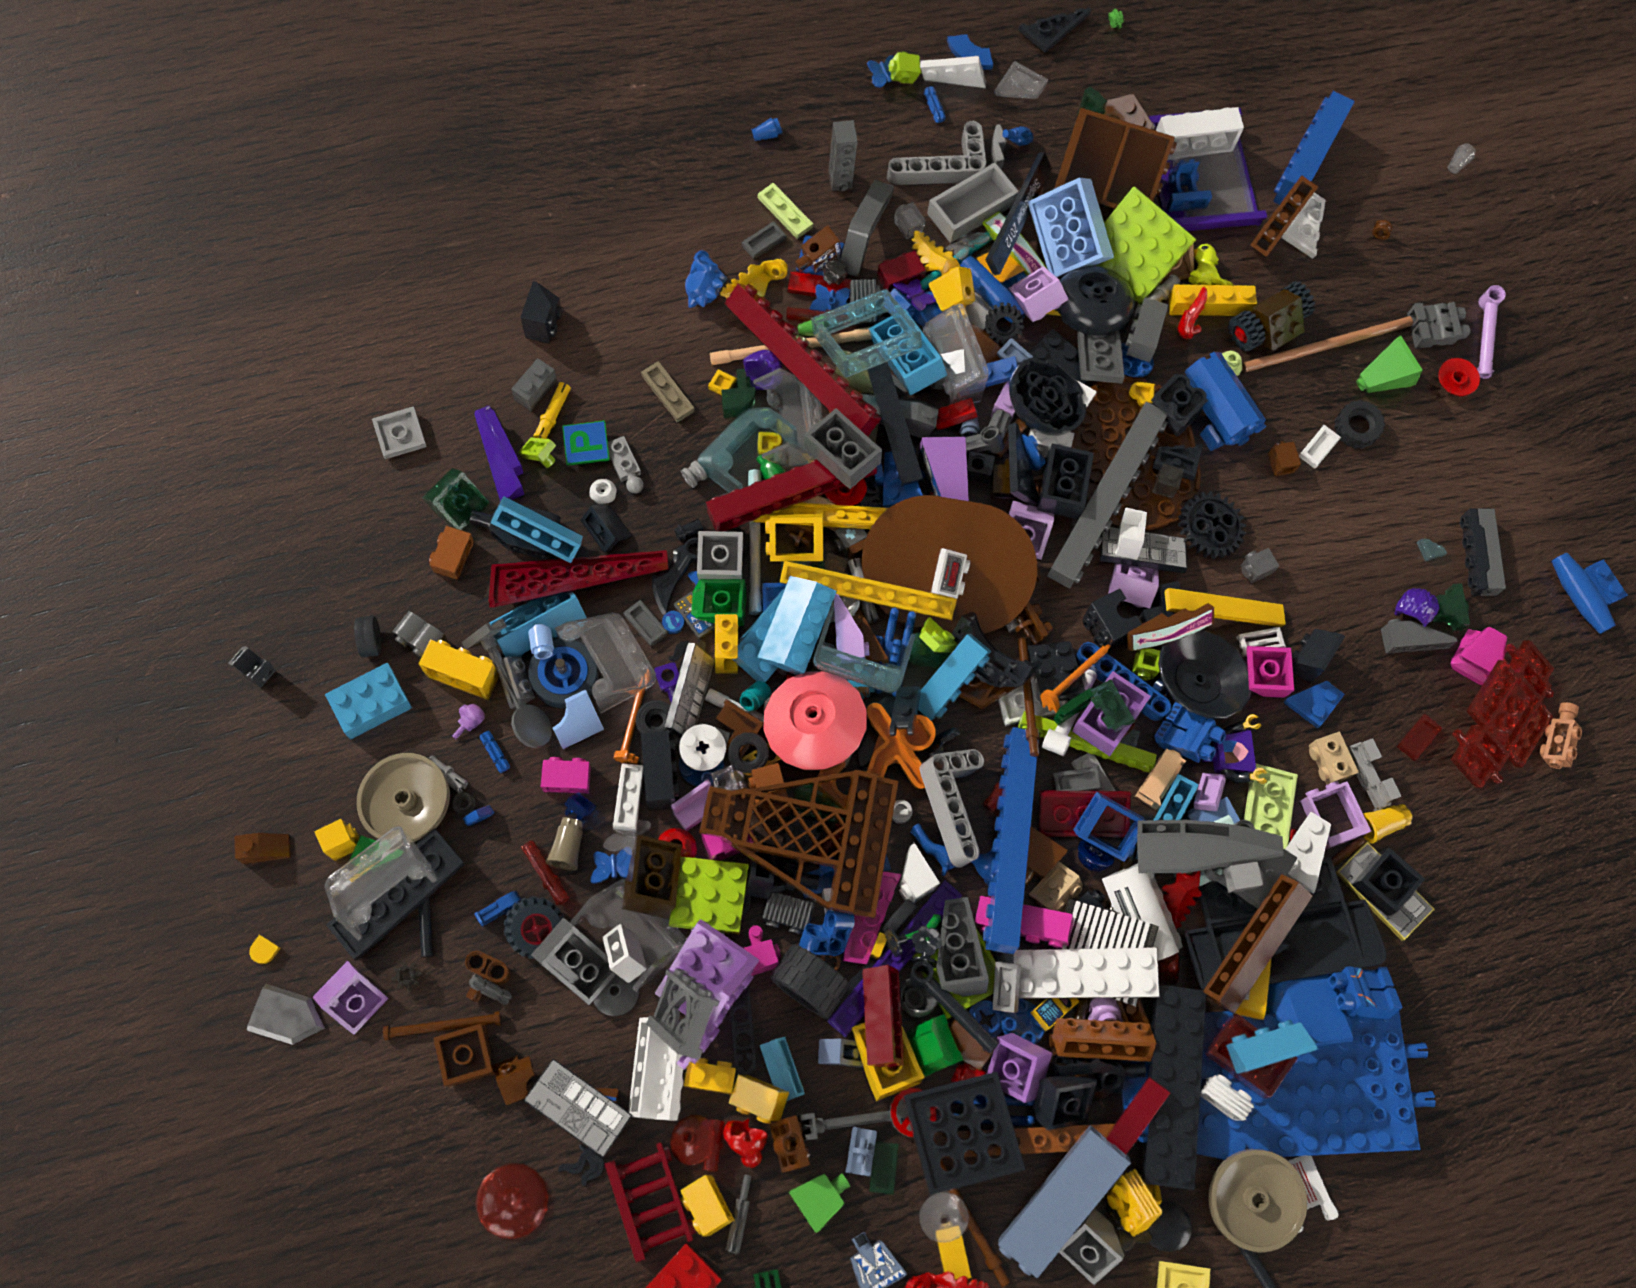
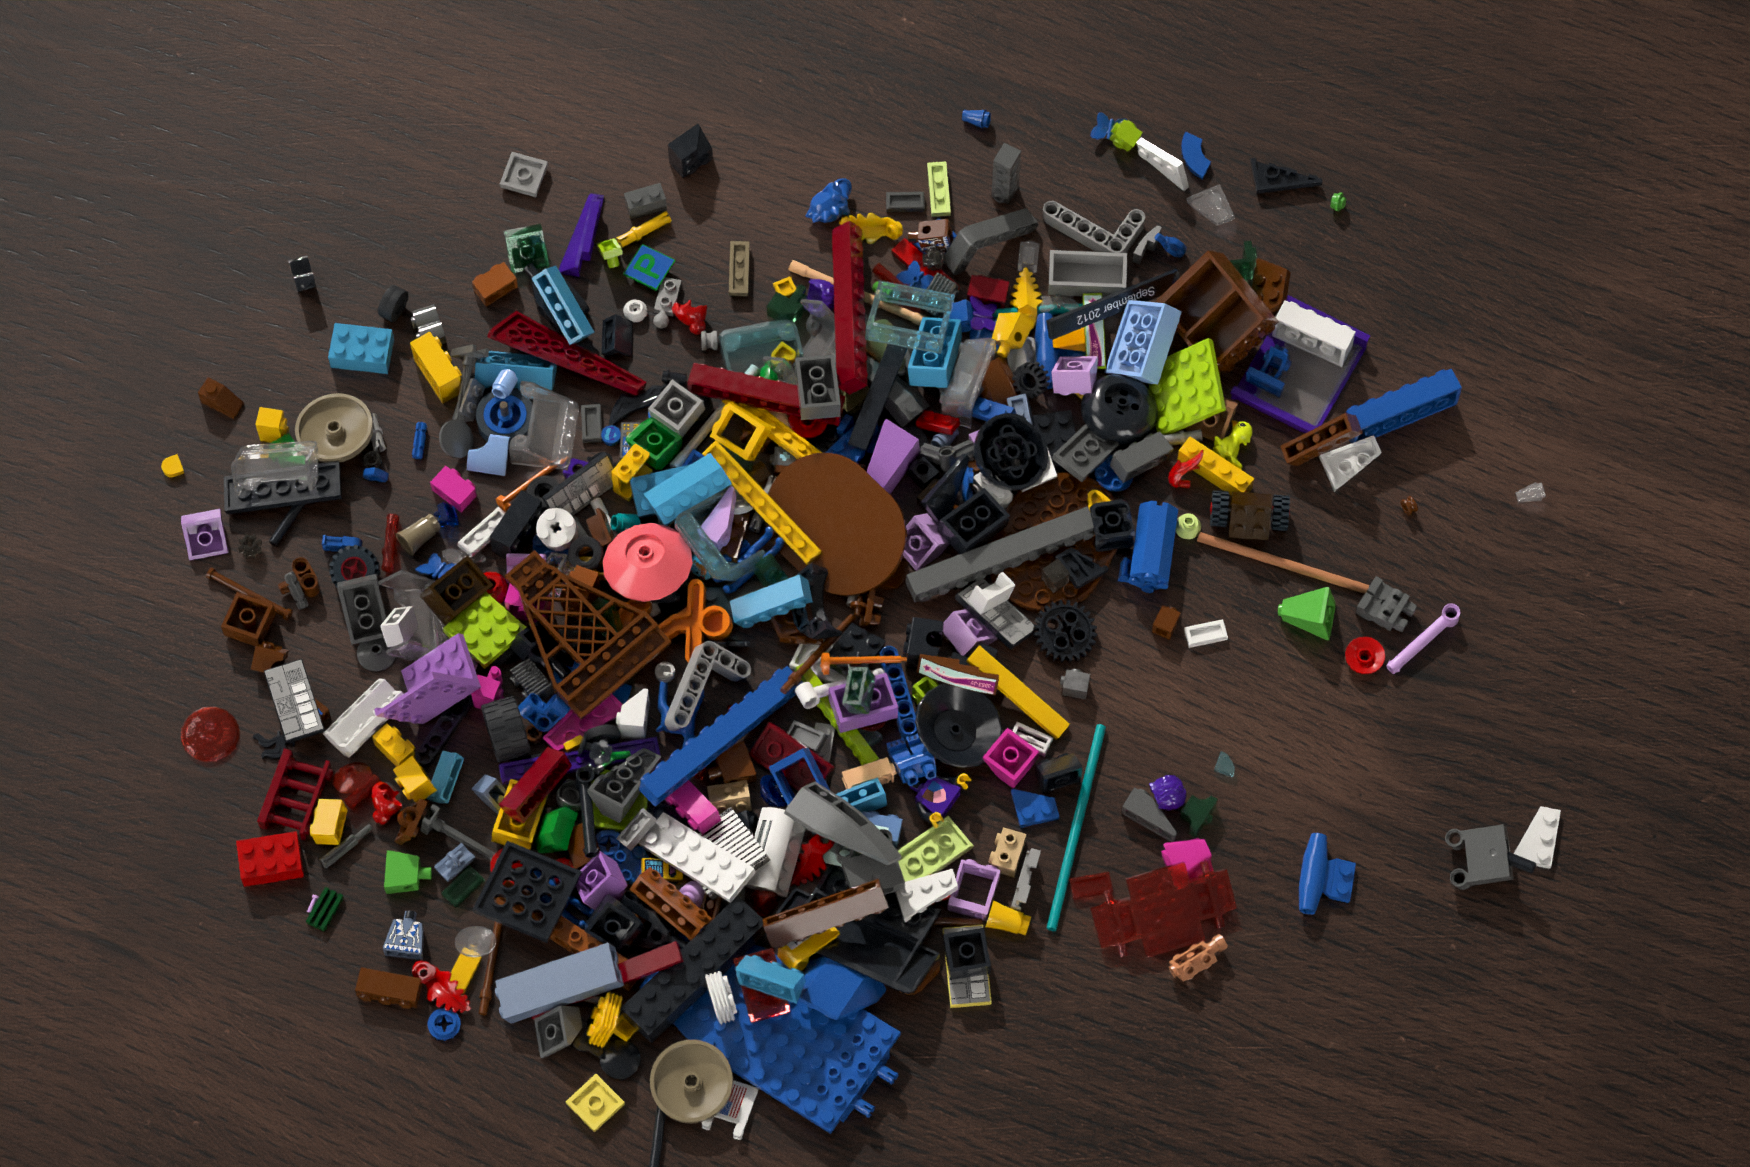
camera: 45 degrees right, 5 degrees down
(284, 1015) = (155, 517): flat silver tile -> none
(470, 718) = (421, 406): medium lavender piece -> none
(660, 462) = (691, 316): none -> red piece
(686, 1035) = (402, 679): dark grey fence -> none
(905, 709) = (717, 599): black hinge -> none
(934, 104) = (1128, 179): blue axle -> none
(937, 638) = (781, 564): lime wing -> none
(949, 573) = (824, 526): slope -> none
(1073, 707) = (832, 677): dark green tile -> none
(1209, 792) = (893, 808): lavender tile -> none
(1243, 877) = (851, 863): light grey brick -> none
(1366, 992) = (876, 1002): blue hips -> none
(1367, 411) = (1251, 622): black tyre -> none
(1367, 699) = (1076, 827): none -> teal piece
(1482, 552) = (1260, 792): piece -> none

